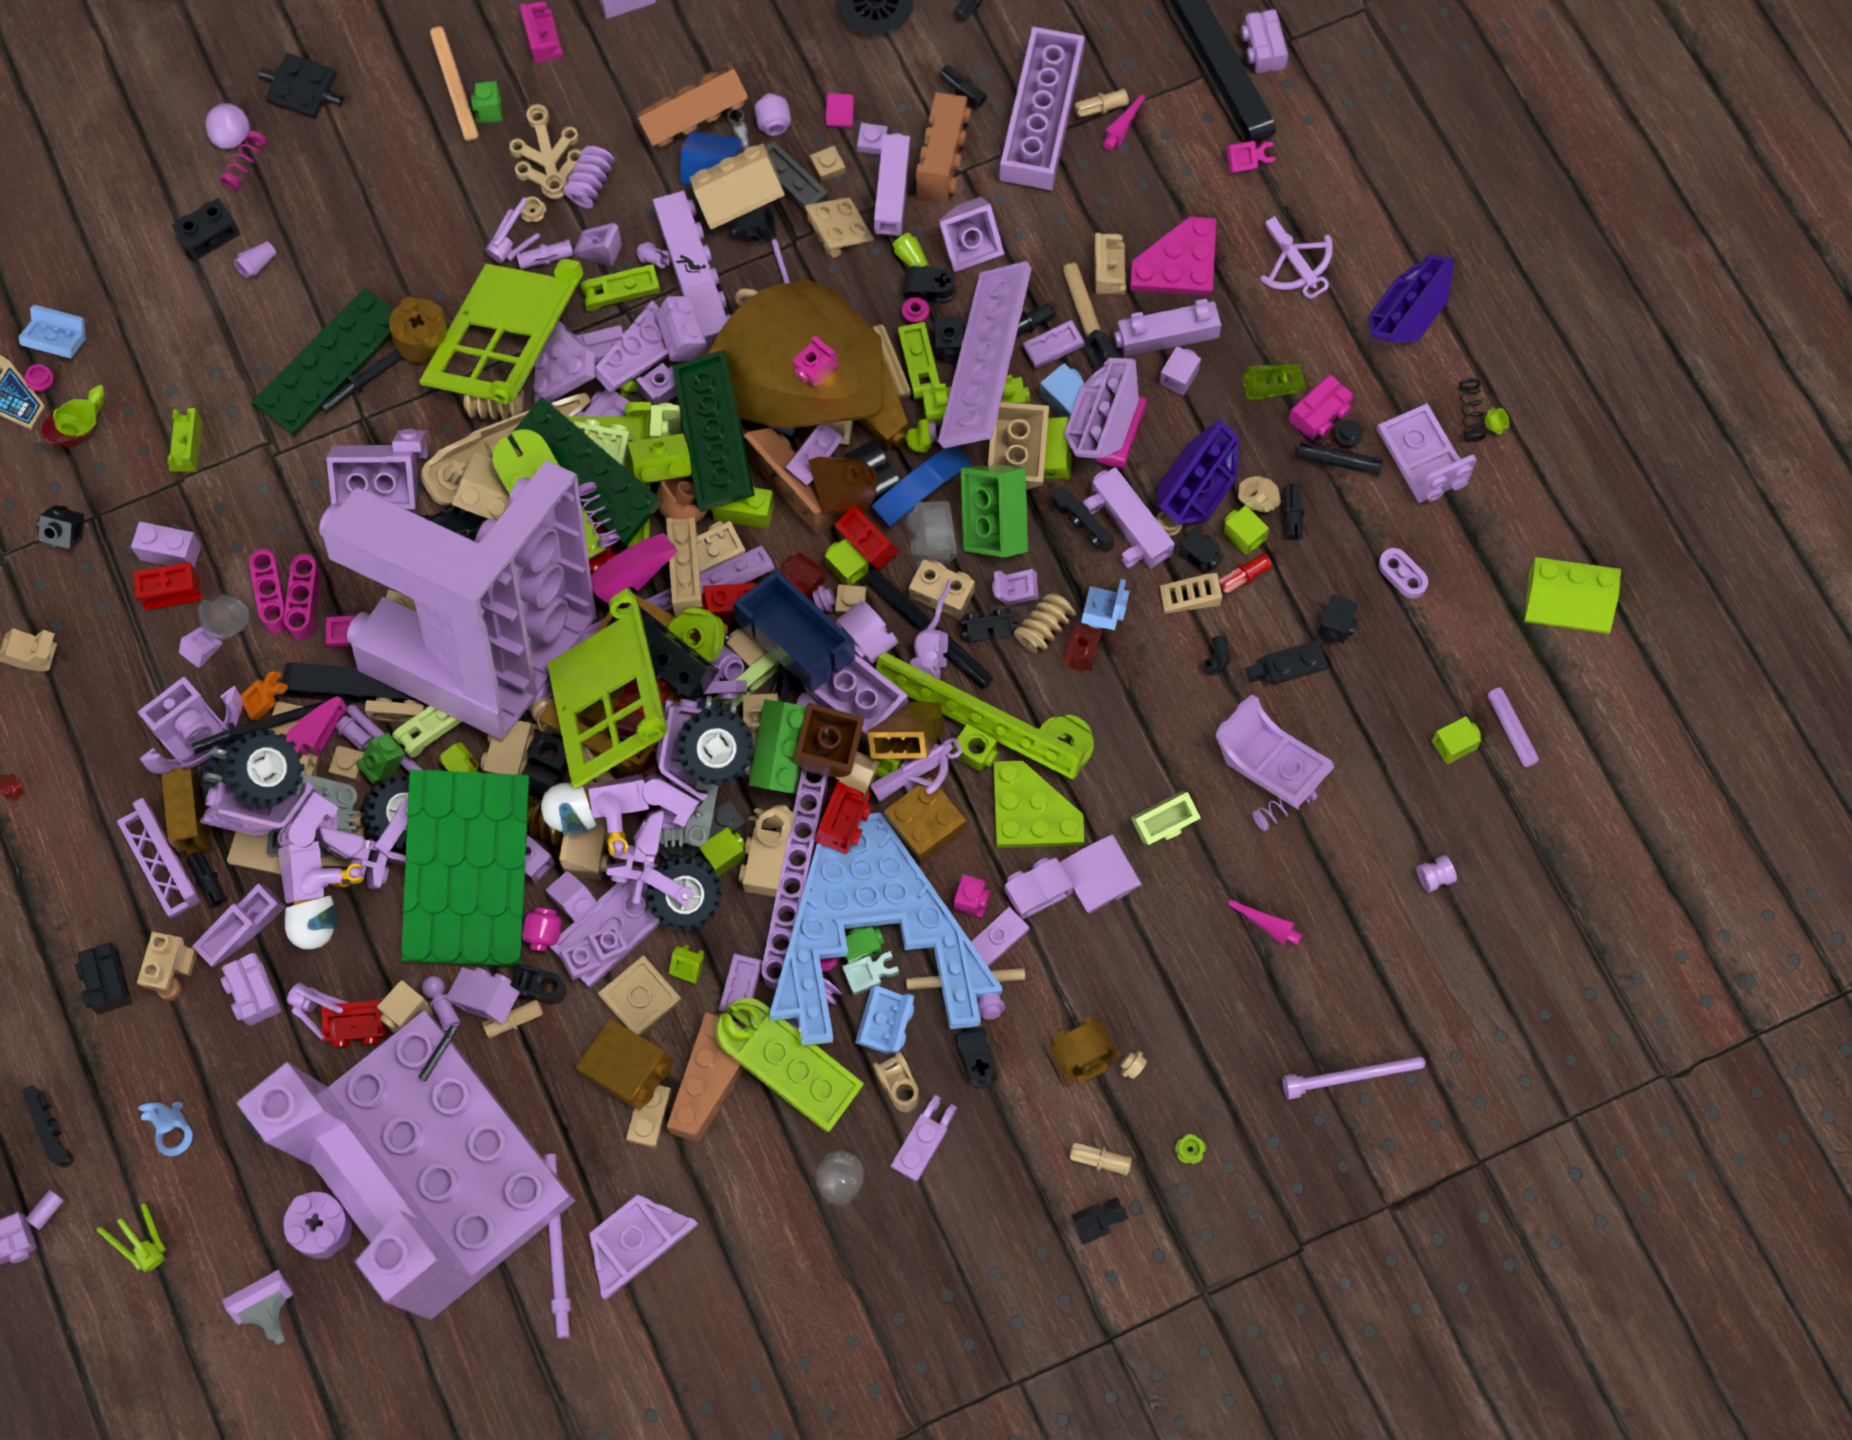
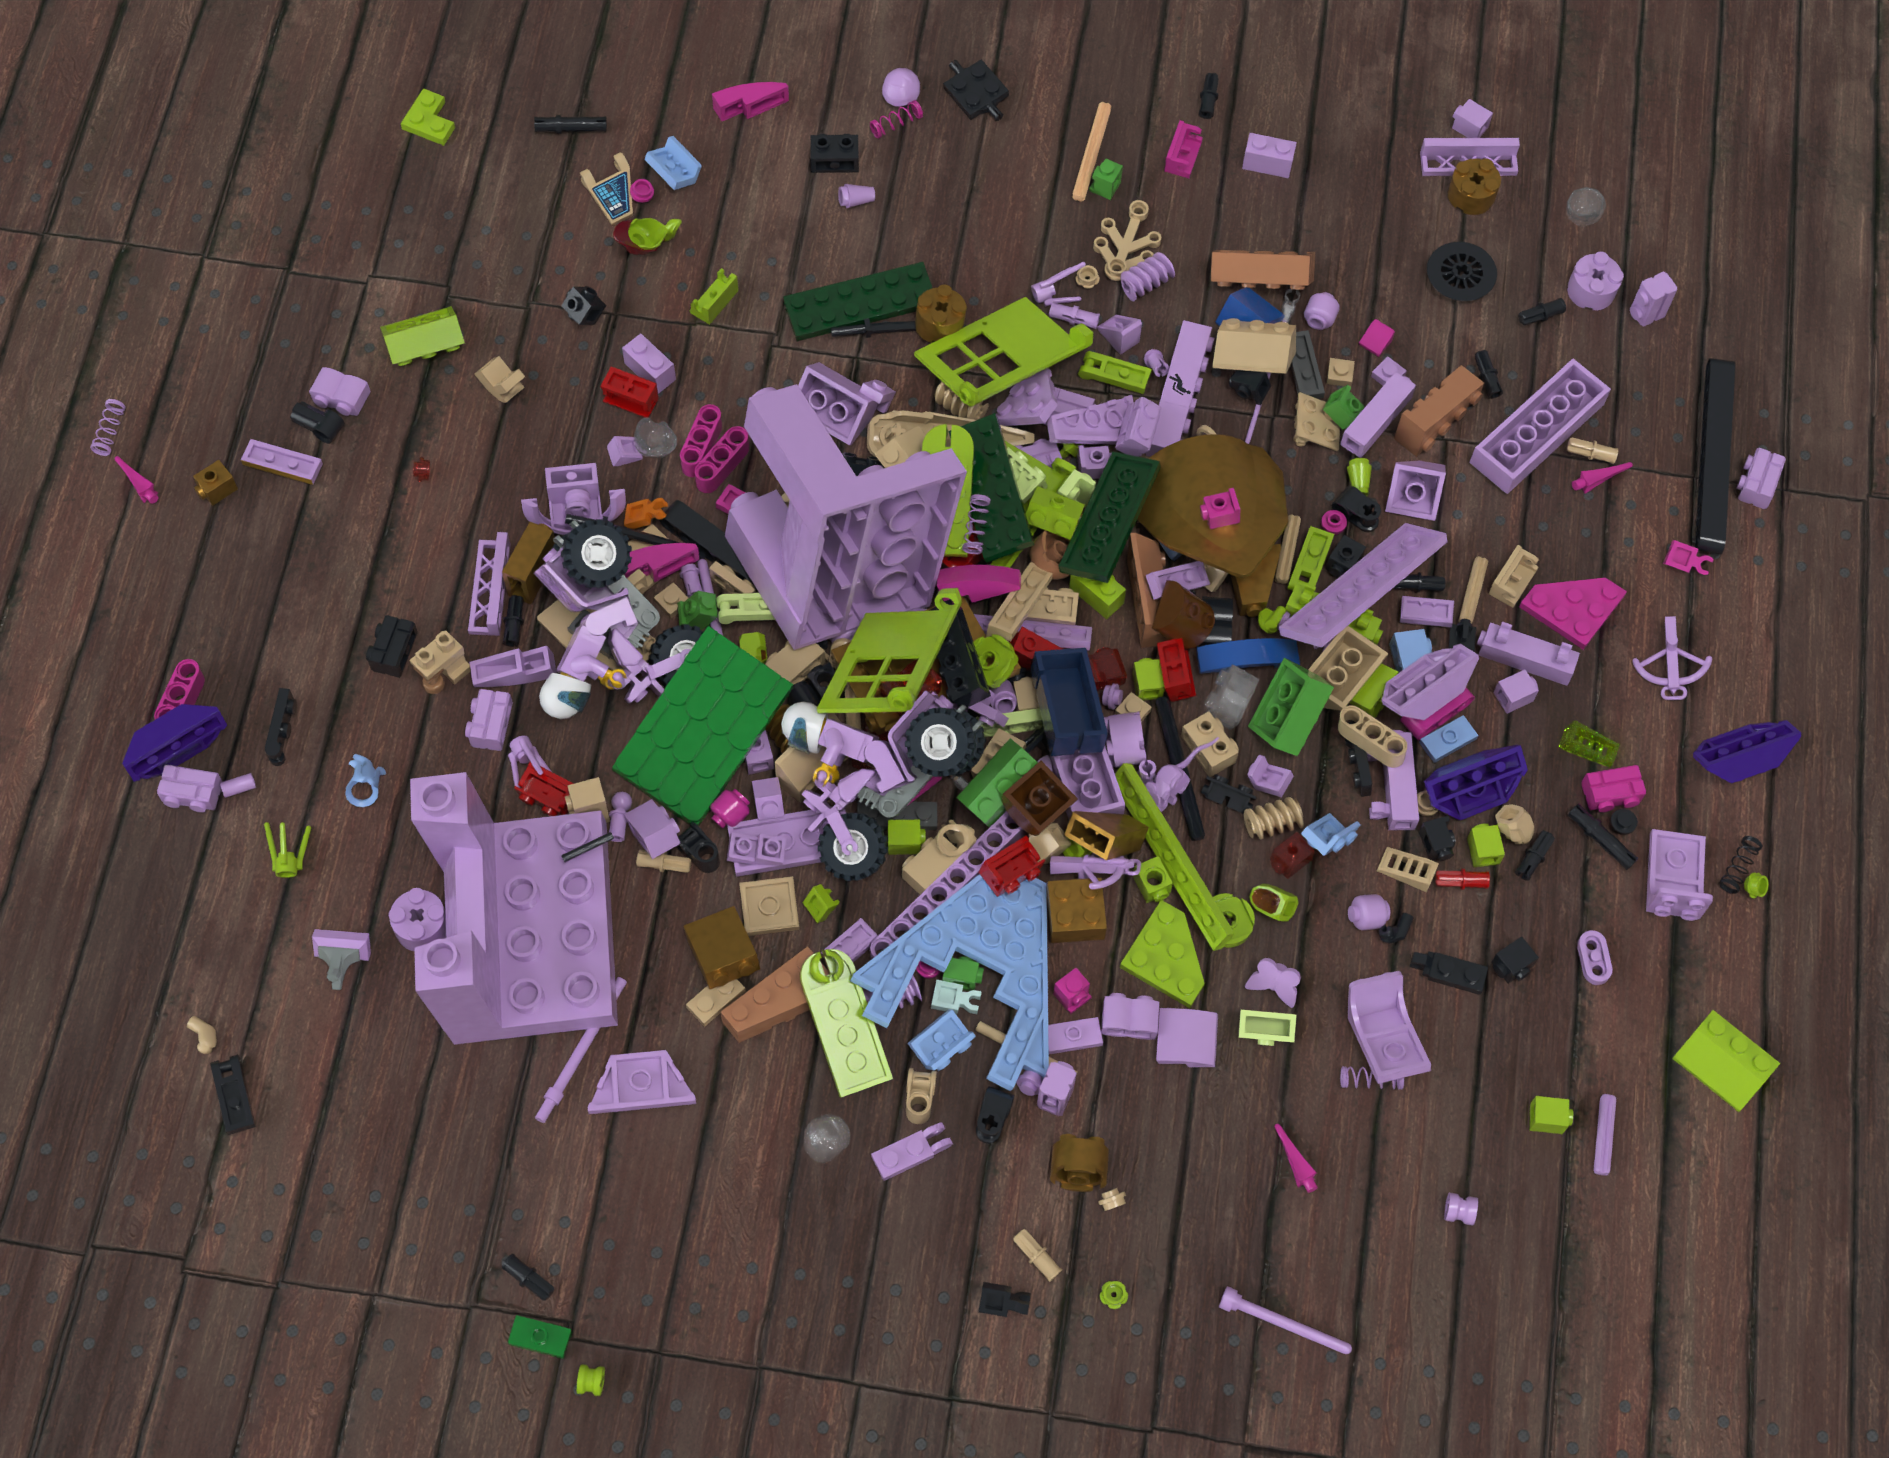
camera: 30 degrees right, 5 degrees down
(83, 223) = (749, 99): none -> dark pink slope
(855, 196) = (1343, 407): none -> bright green brick
(904, 650) = (1147, 770): none -> lavender pin
(1019, 996) = (1056, 1088): none -> lavender brick
(1074, 484) = (1368, 725): none -> tan beam
(1094, 700) = (1274, 902): none -> lime rock
(1144, 768) = (1277, 978): none -> lavender animal
(1148, 451) = (1448, 739): none -> light blue plate
(1184, 656) = (1369, 912): none -> lavender head

